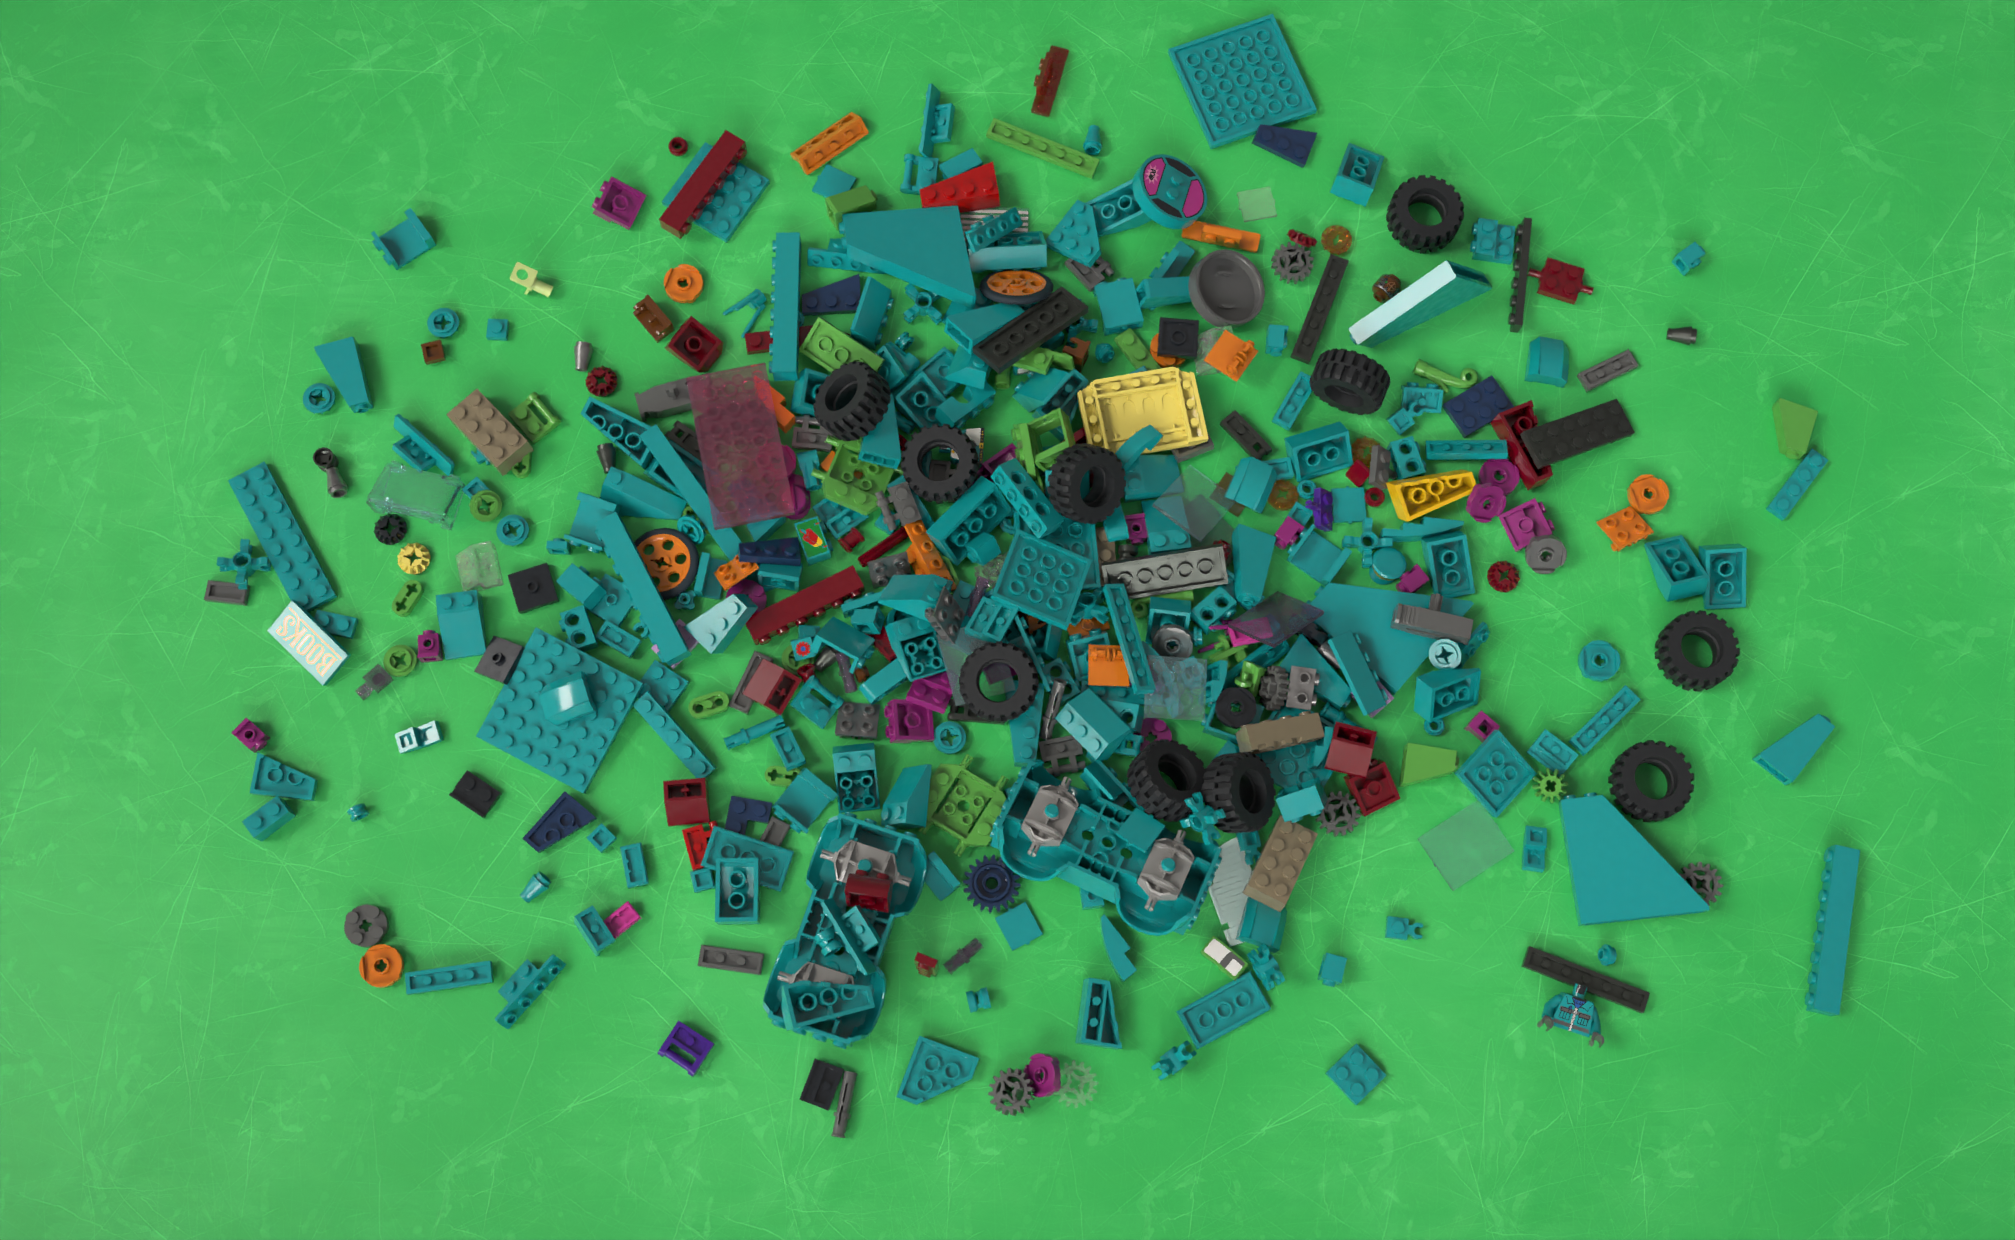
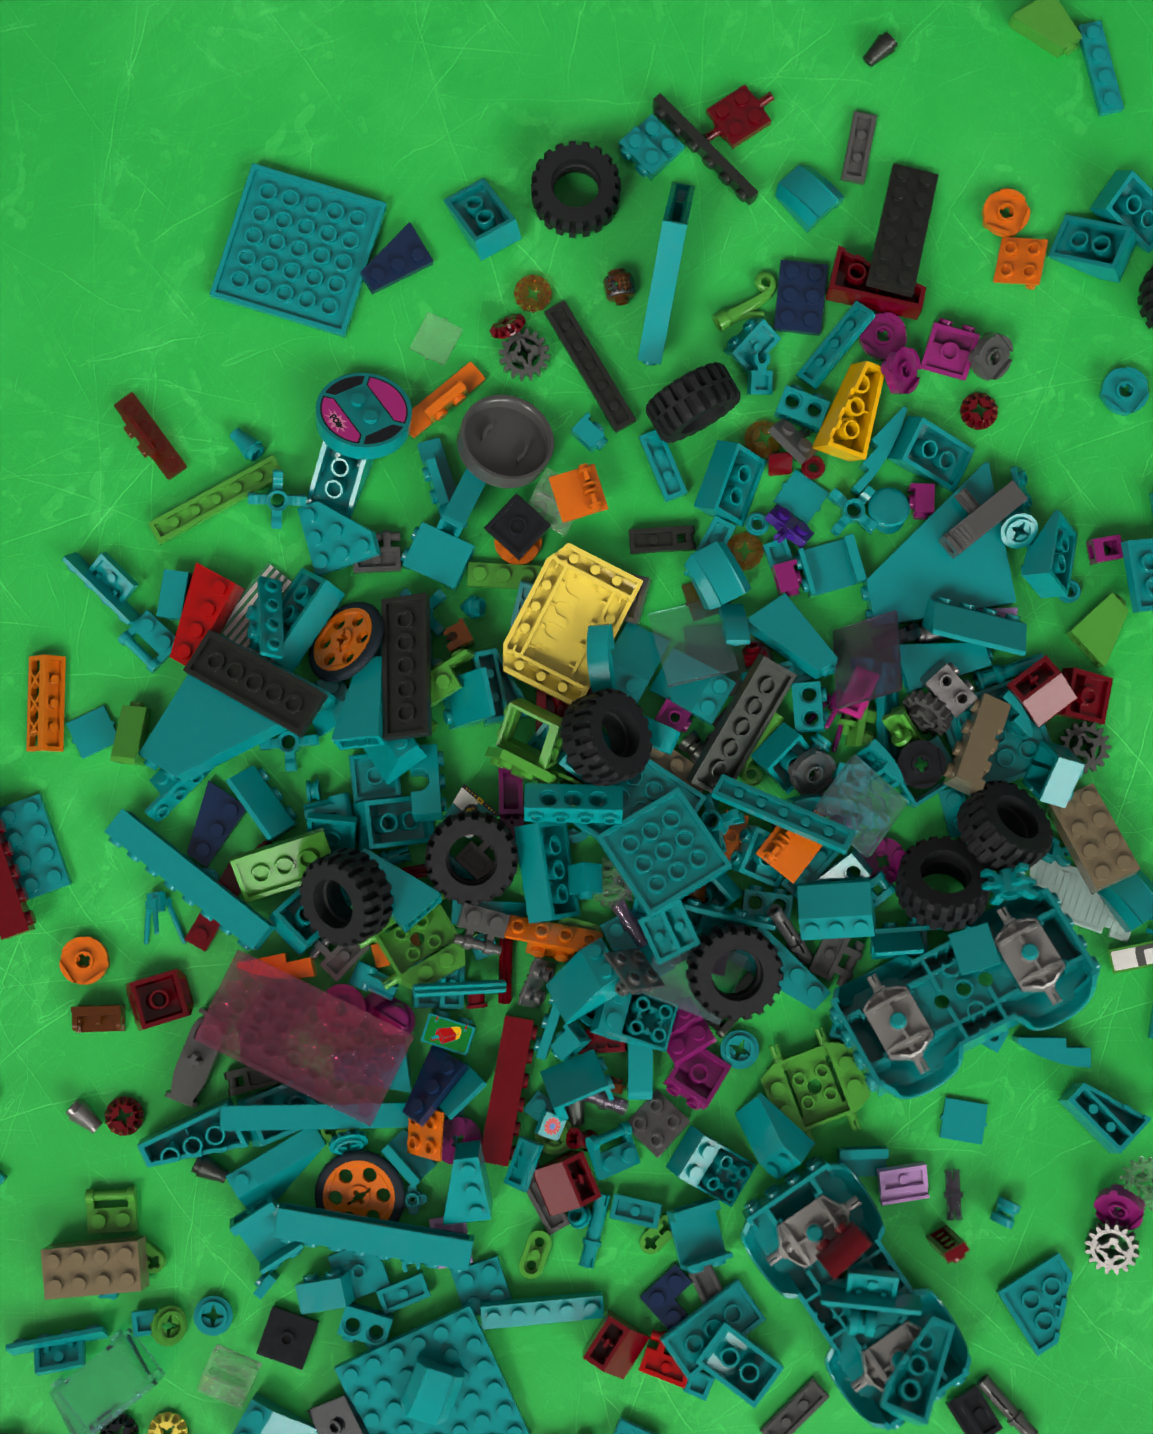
camera: 50 degrees left, 10 degrees up
(756, 714) = (579, 1217): none -> teal plate
(763, 649) = (523, 1163): none -> teal plate
(848, 520) = (459, 988): none -> teal axle
(944, 914) = (902, 1183): none -> lavender plate
(945, 247) = (255, 683): none -> pearl dark grey plate
(991, 897) = (913, 1132): dark blue gear -> none
(1083, 173) = (276, 510): none -> teal pin
(1228, 518) = (735, 624): none -> teal slope

